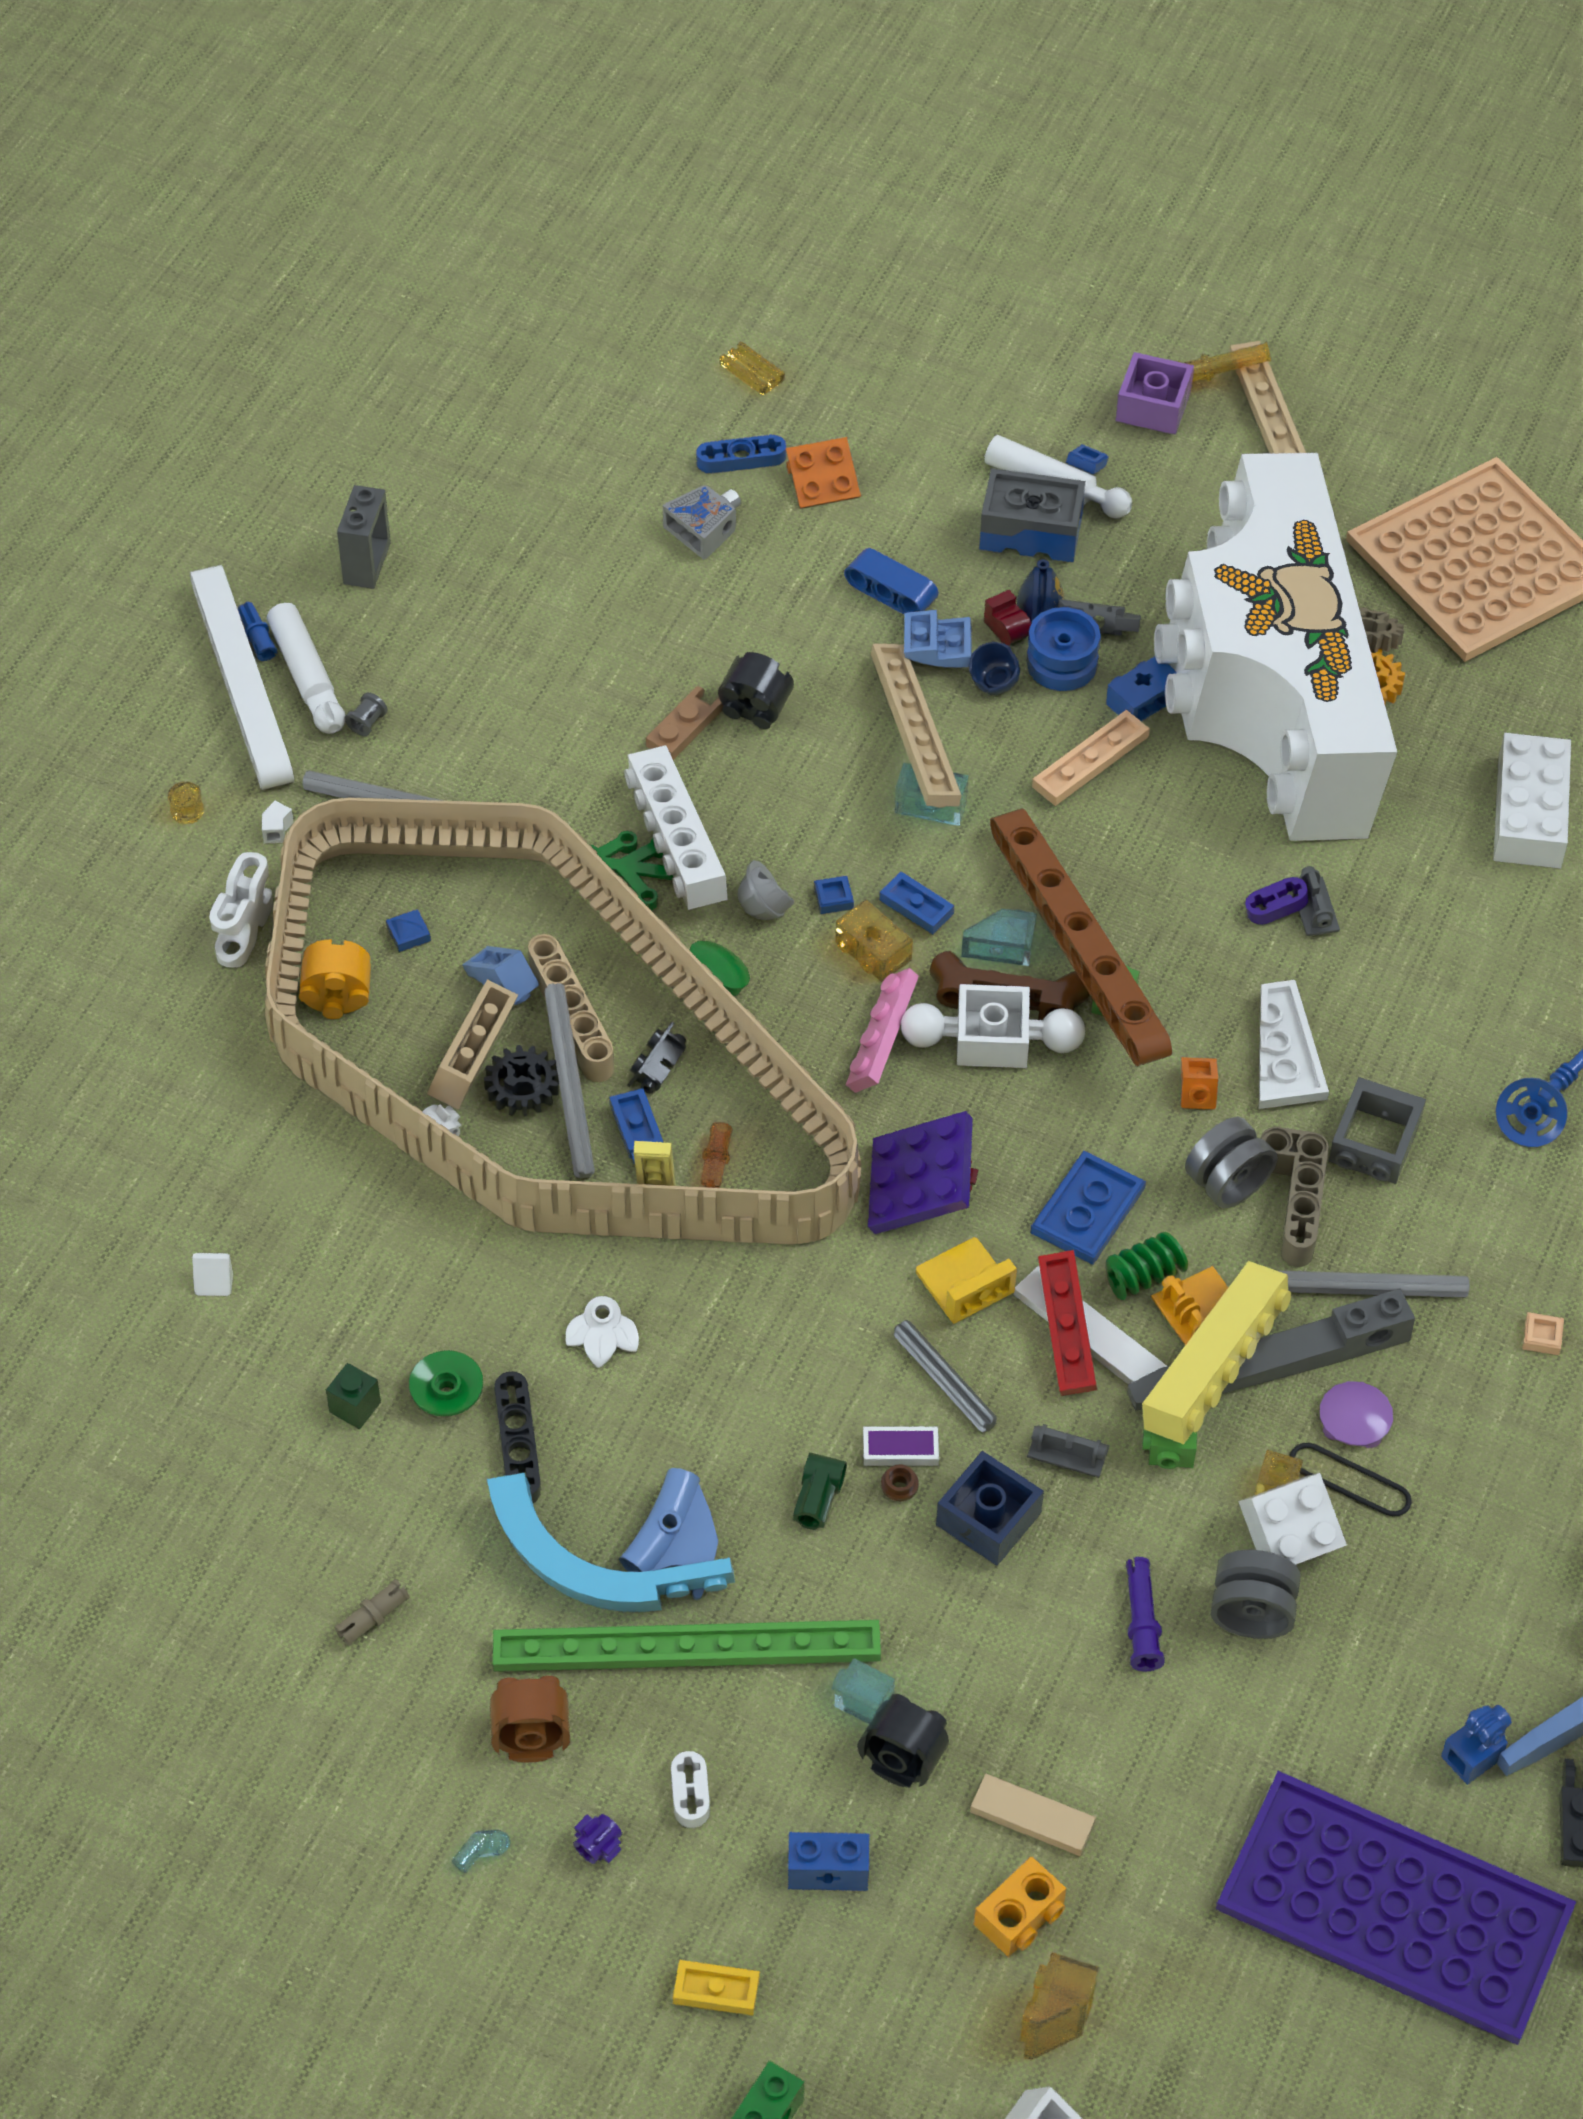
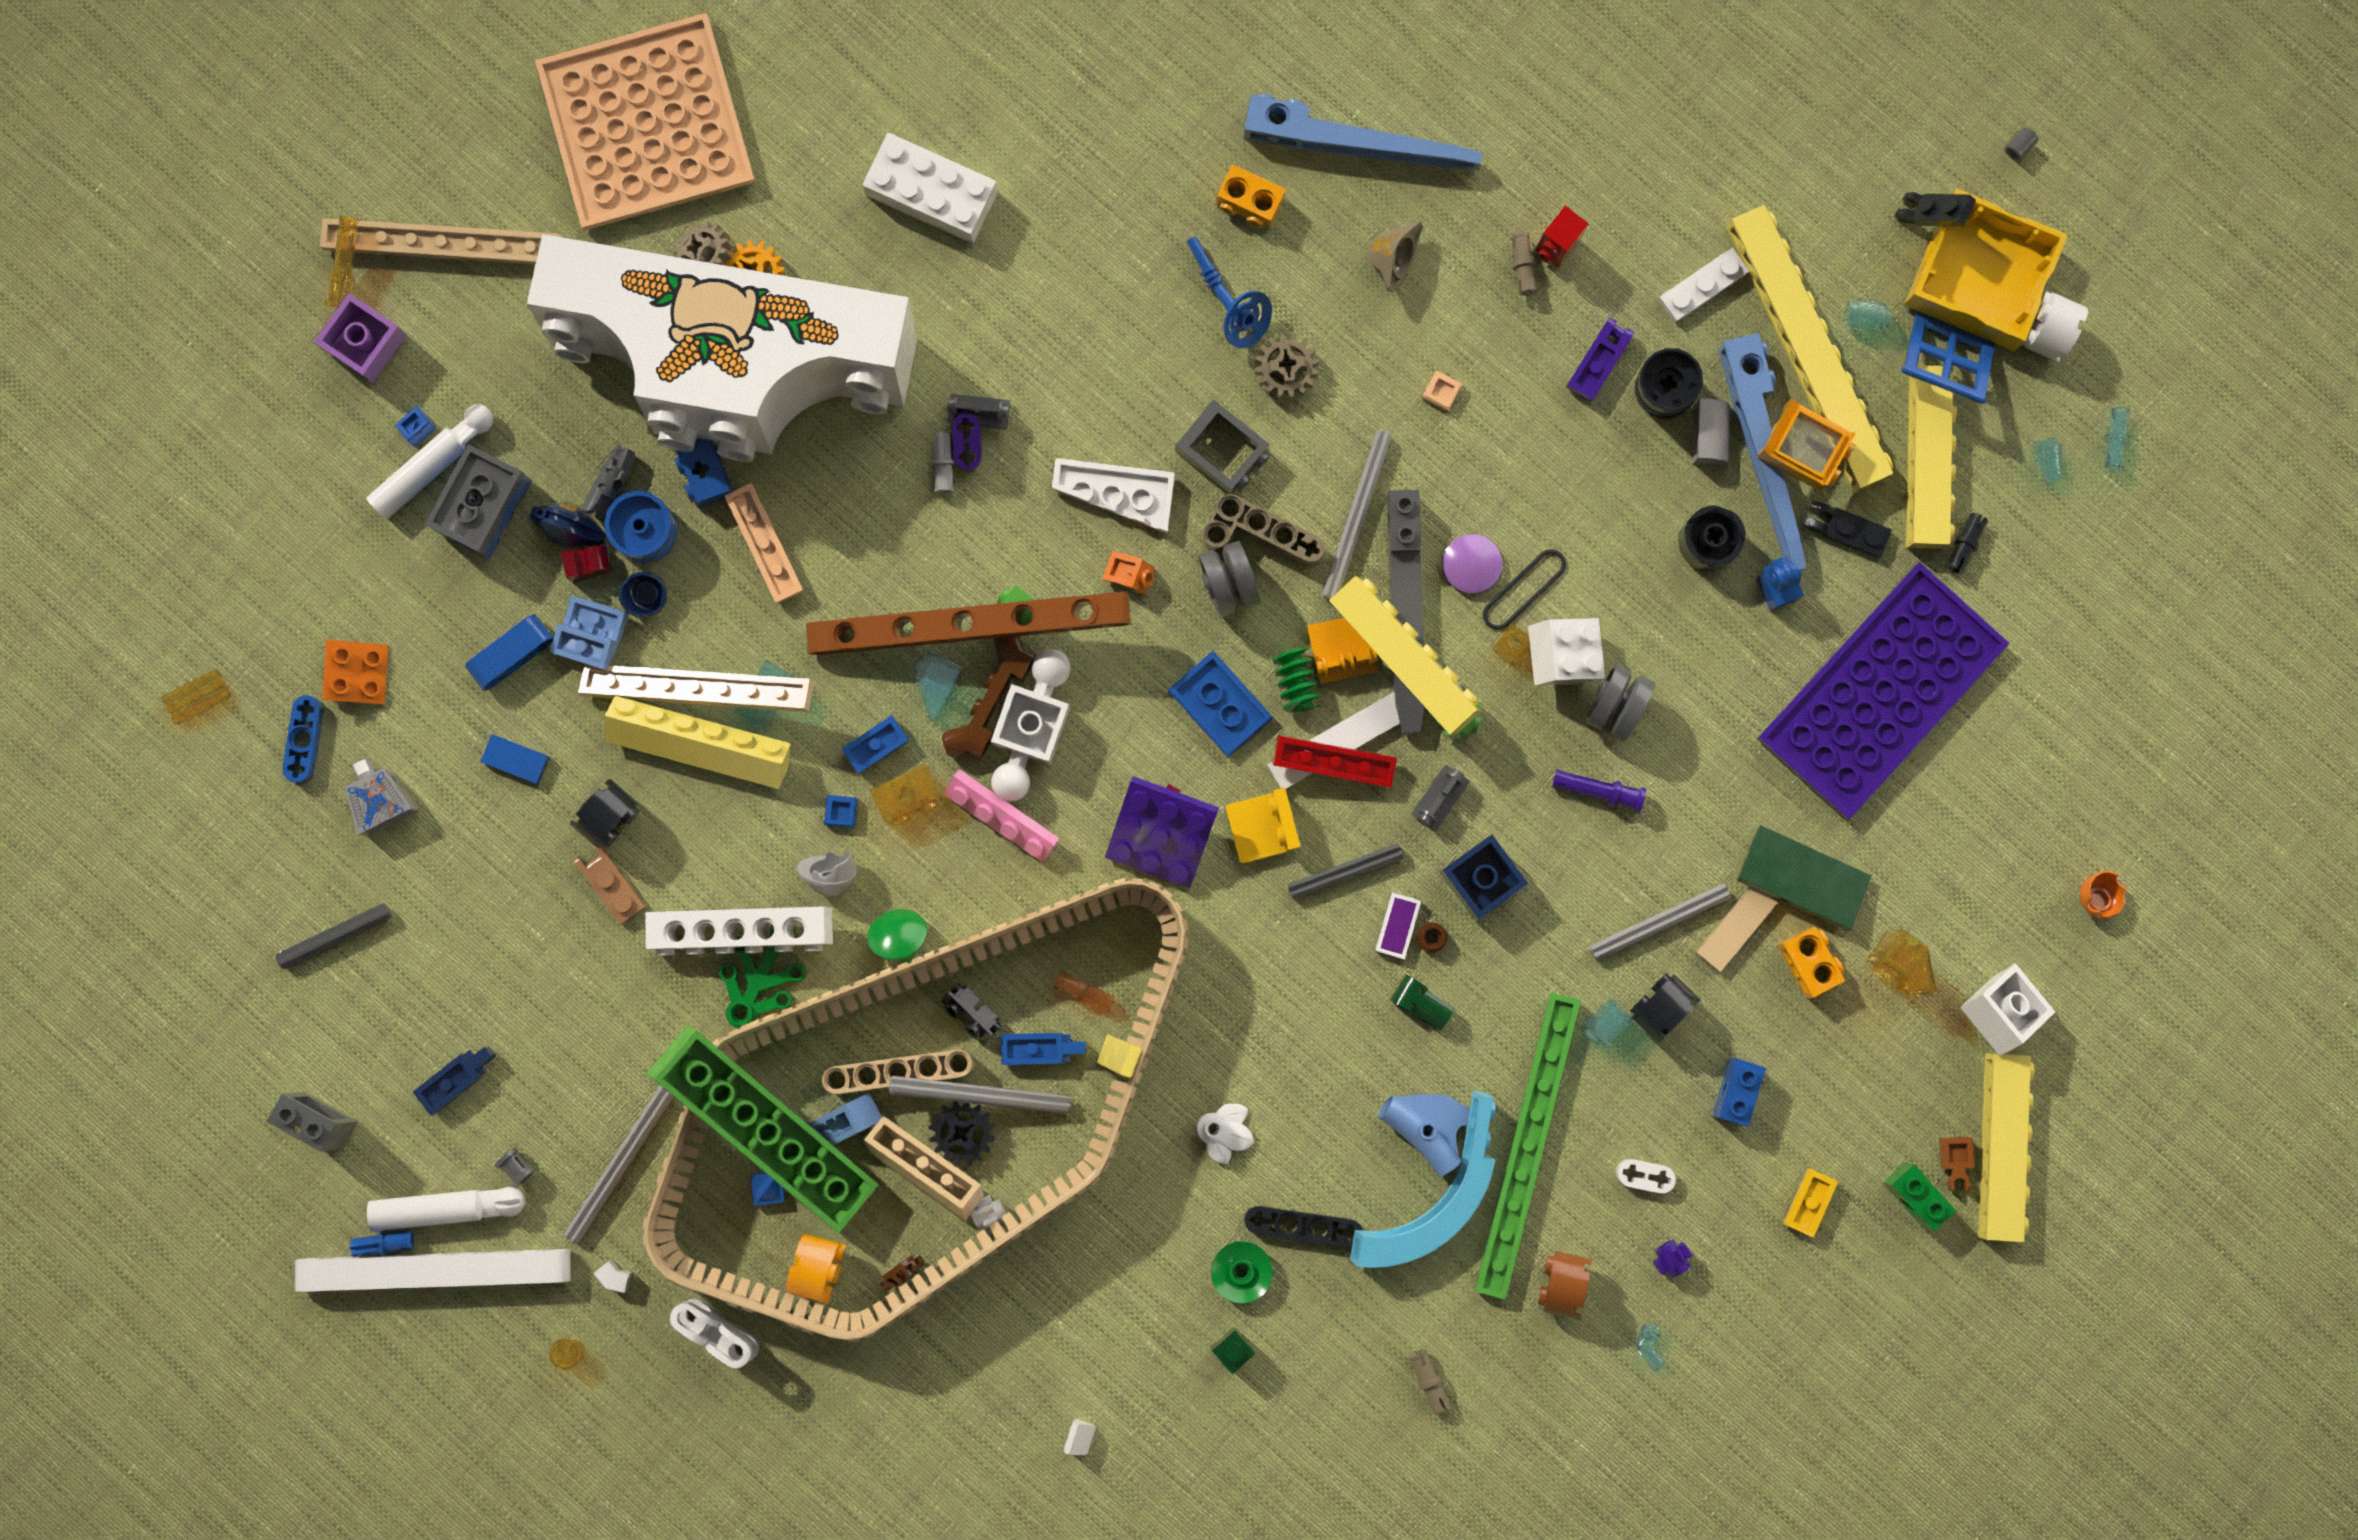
camera: 75 degrees left, 30 degrees up
(355, 1052) = (901, 1272): none -> reddish brown gear
(441, 646) = (453, 1080): none -> dark blue hinge
(470, 875) = (762, 1128): none -> bright green brick
(554, 522) = (333, 936): none -> dark grey axle
(784, 617) = (515, 759): none -> blue tile
(859, 748) = (696, 742): none -> light yellow brick
(1008, 1726) = (1659, 922): none -> light grey axle
(1123, 1873) = (1804, 878): none -> dark green tile
(1241, 887) = (943, 463): none -> light grey axle
(1497, 1168) = (1298, 363): none -> dark tan gear
(1498, 1650) = (1713, 522): none -> black brick

